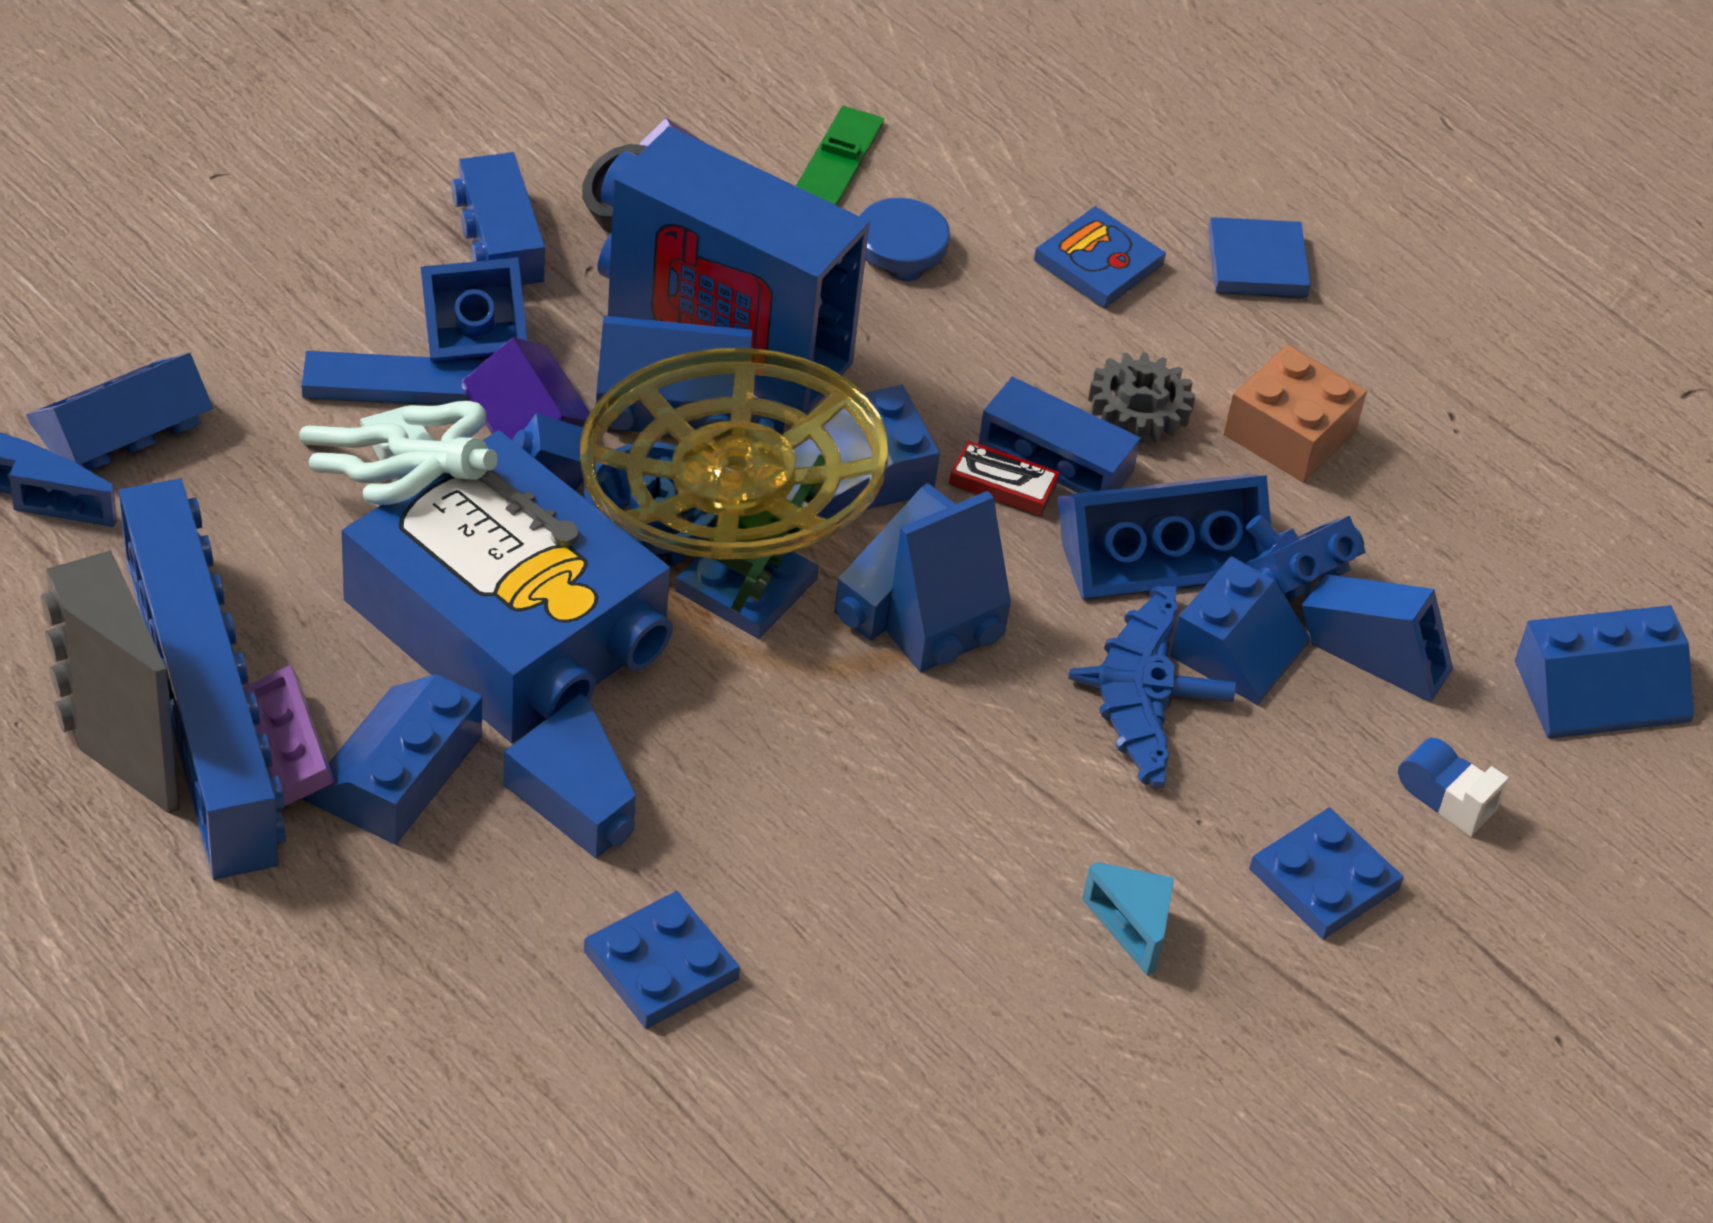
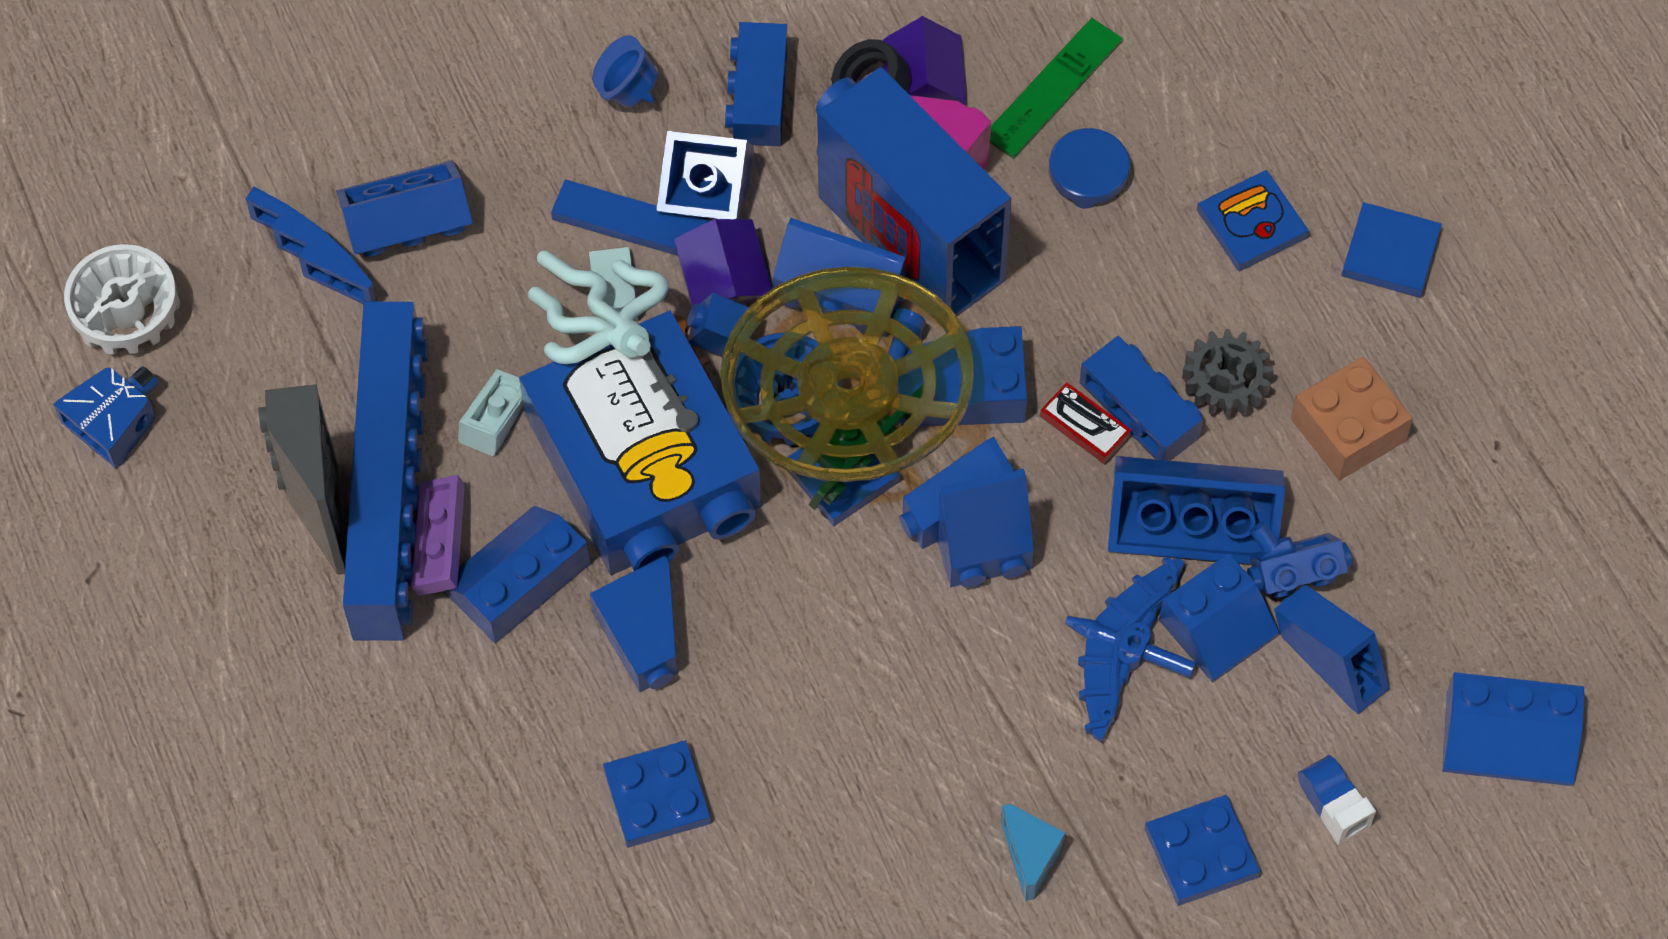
camera: 25 degrees right, 15 degrees up
(305, 602) = (492, 414): none -> light aqua slope
(341, 233) = (625, 73): none -> blue piece

